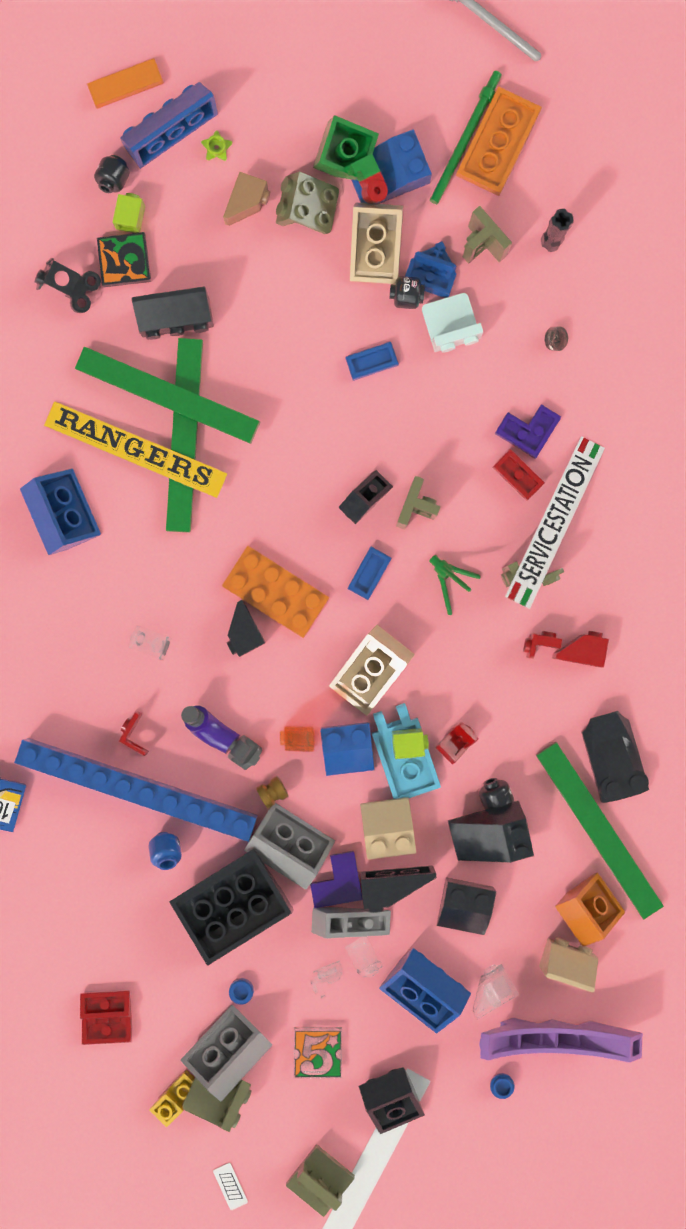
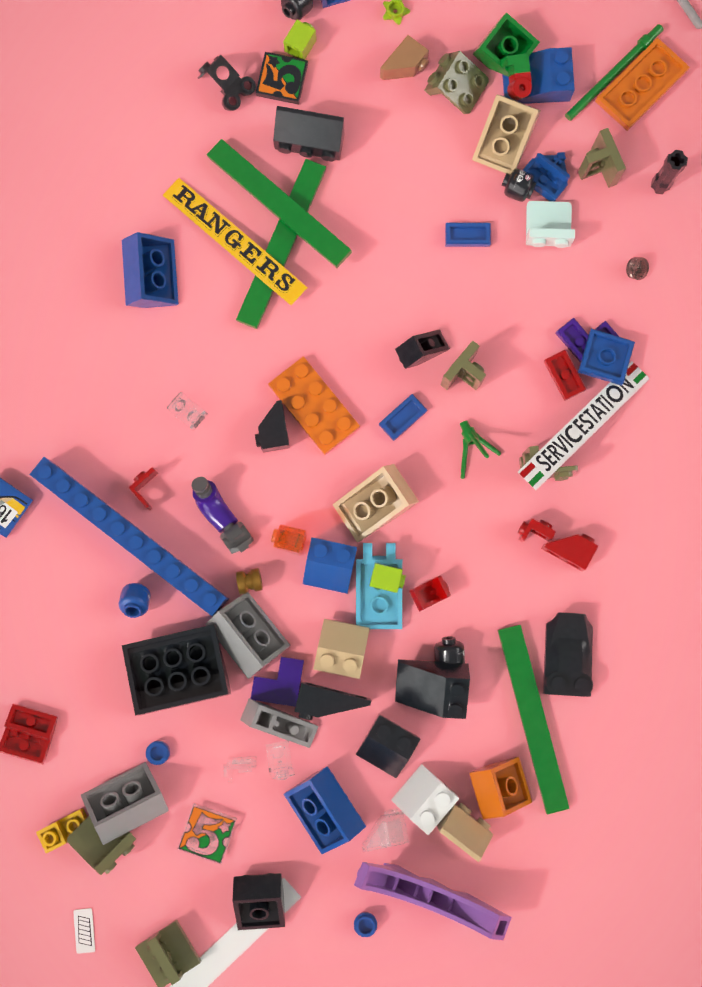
camera: 25 degrees right, 5 degrees down
(520, 946) = (425, 799): none -> white slope
(554, 442) = (606, 357): none -> blue tile

